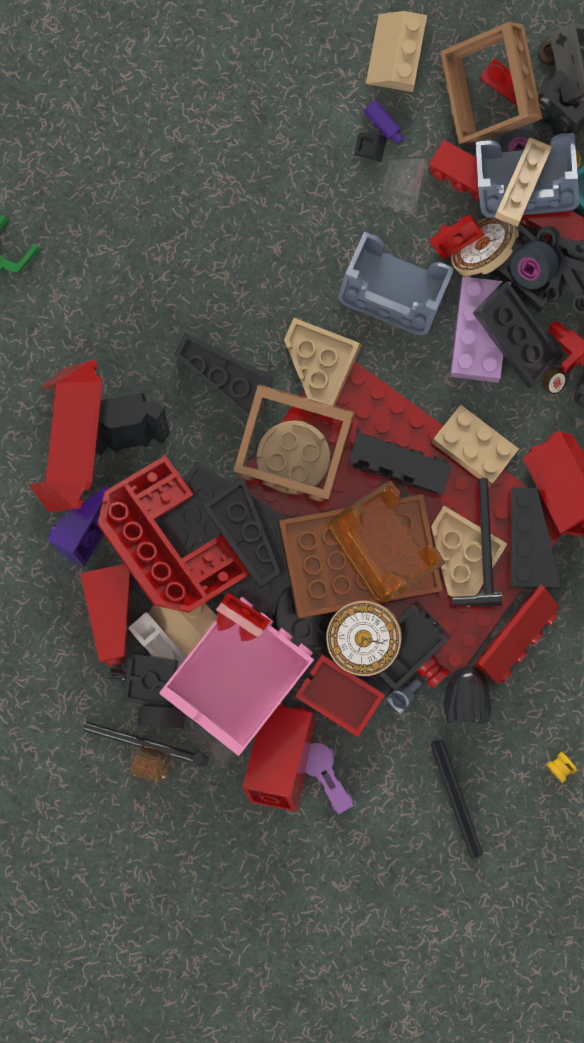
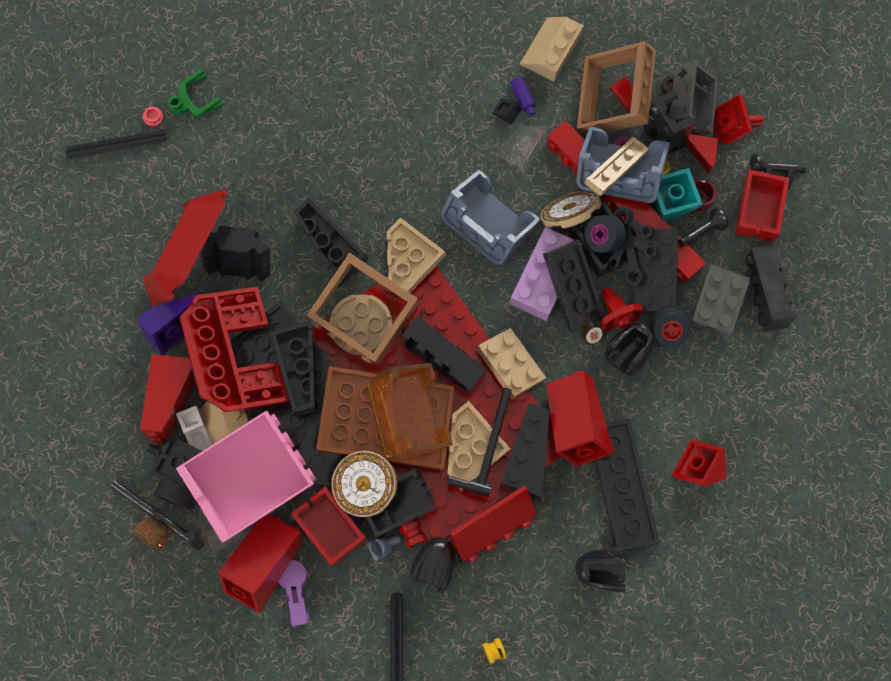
camera: 15 degrees right, 10 degrees down
(234, 611) = (262, 421): red tile -> none
(456, 237) = (551, 196): red tile -> none

